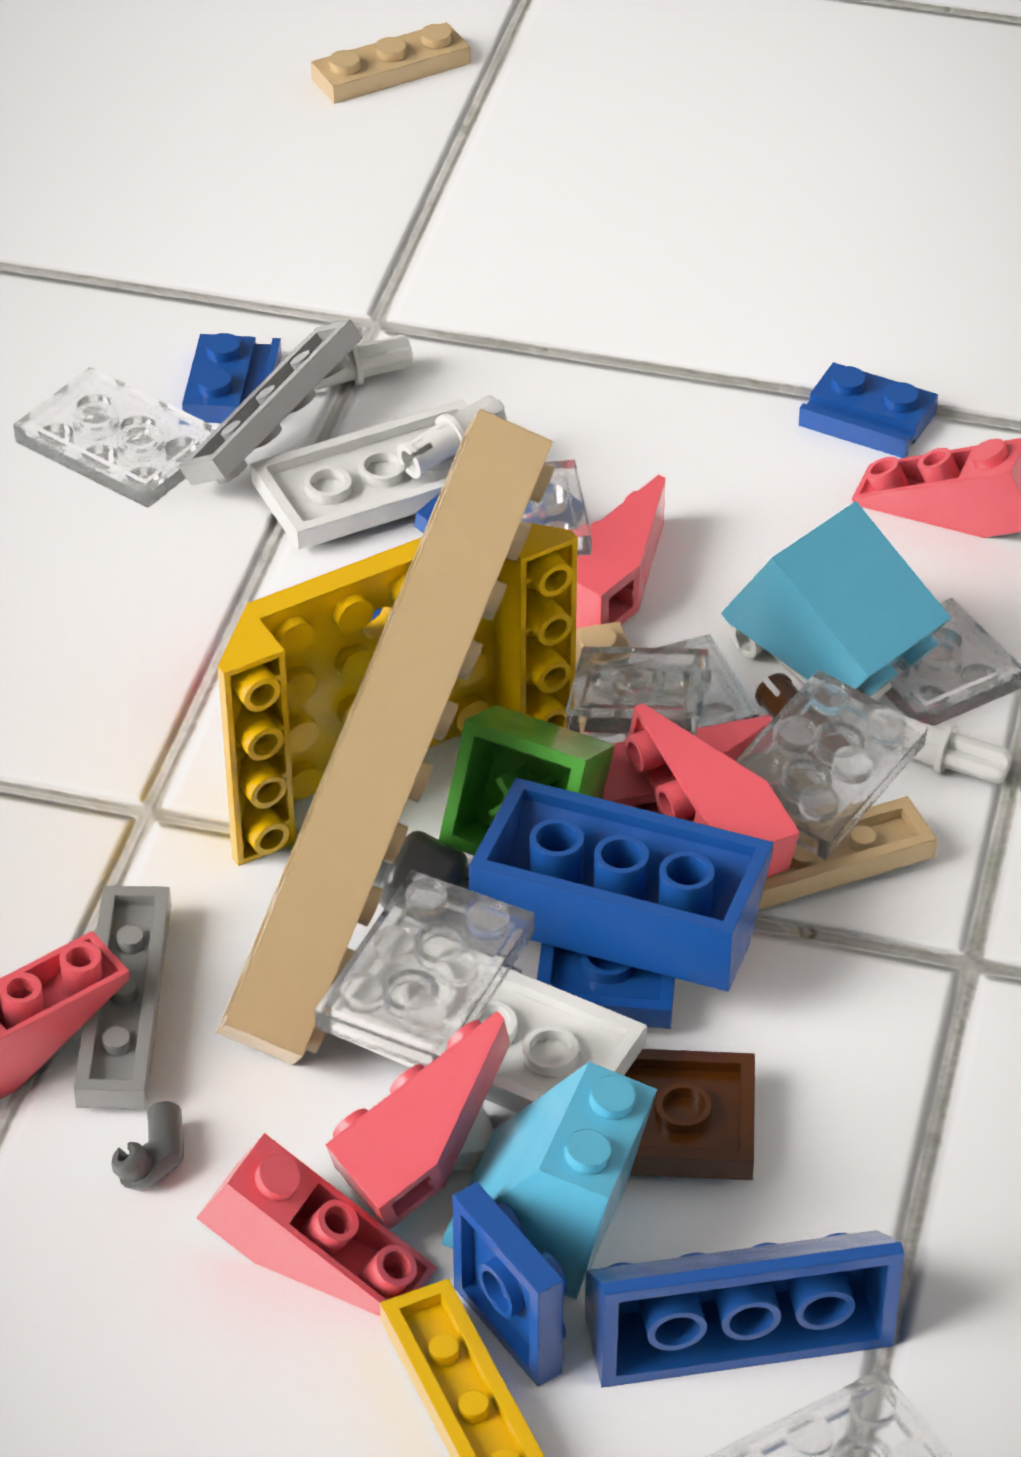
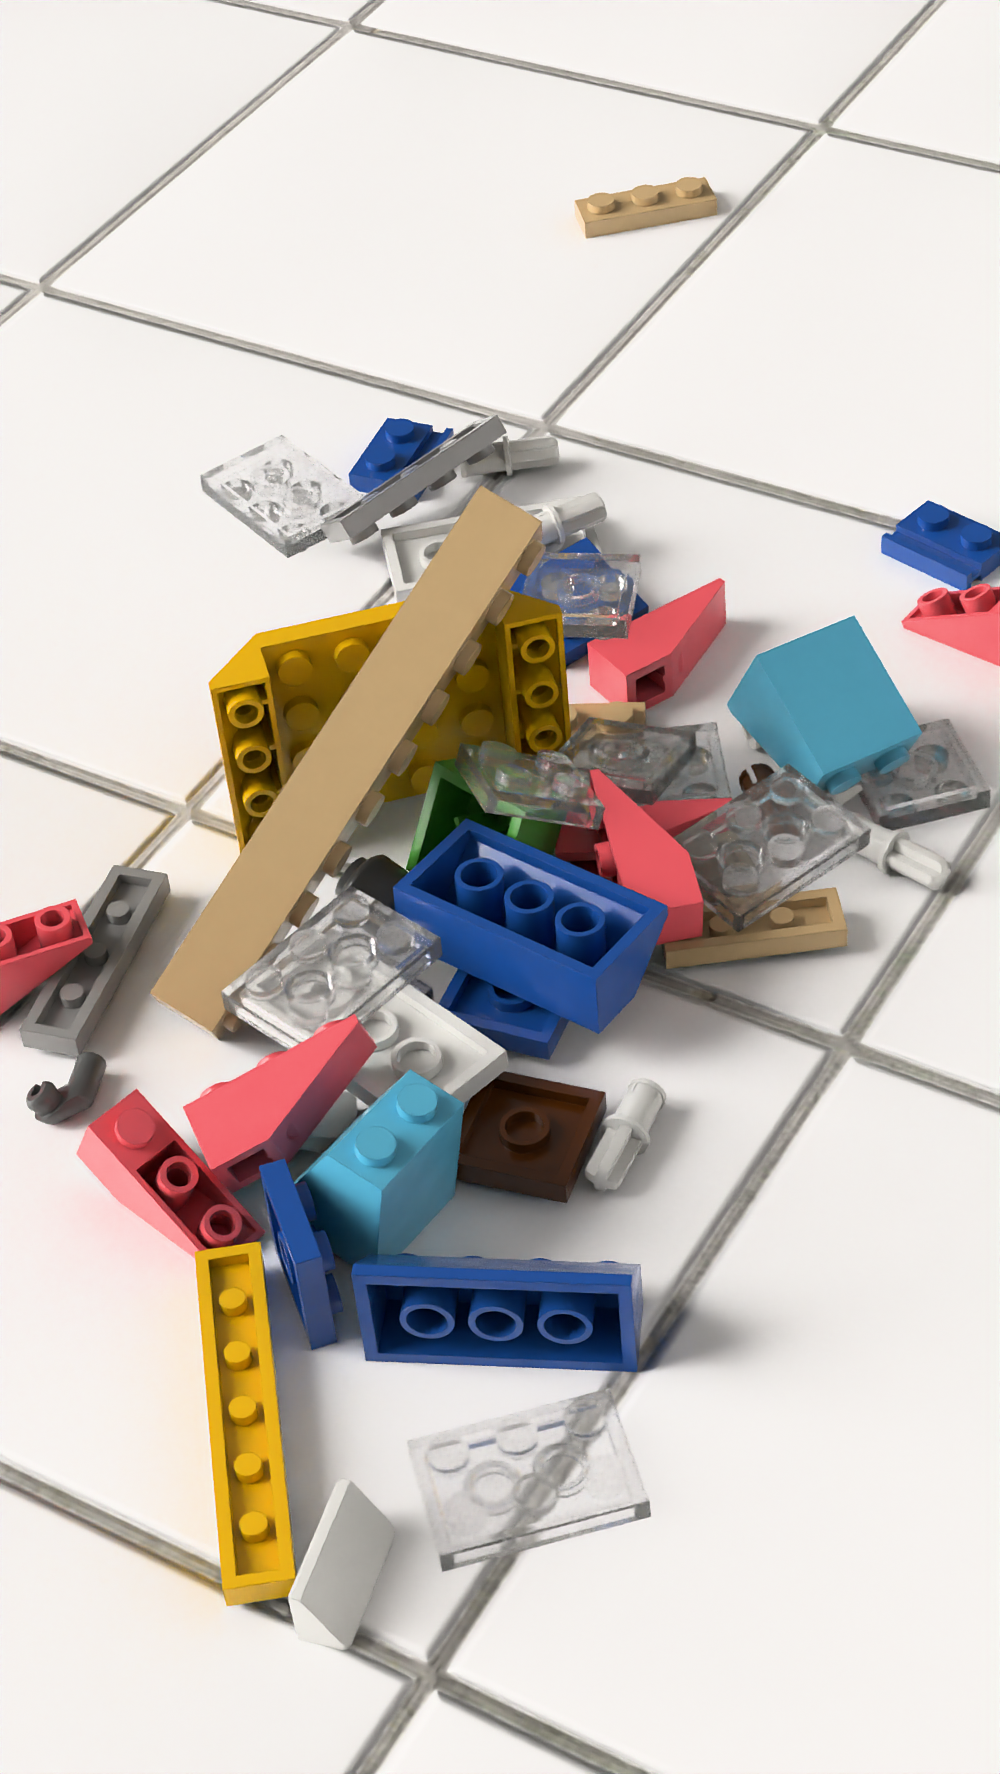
camera: 20 degrees right, 0 degrees up
(578, 731) = (529, 785): none -> clear plate
(787, 1095) = (625, 1134): none -> white axle

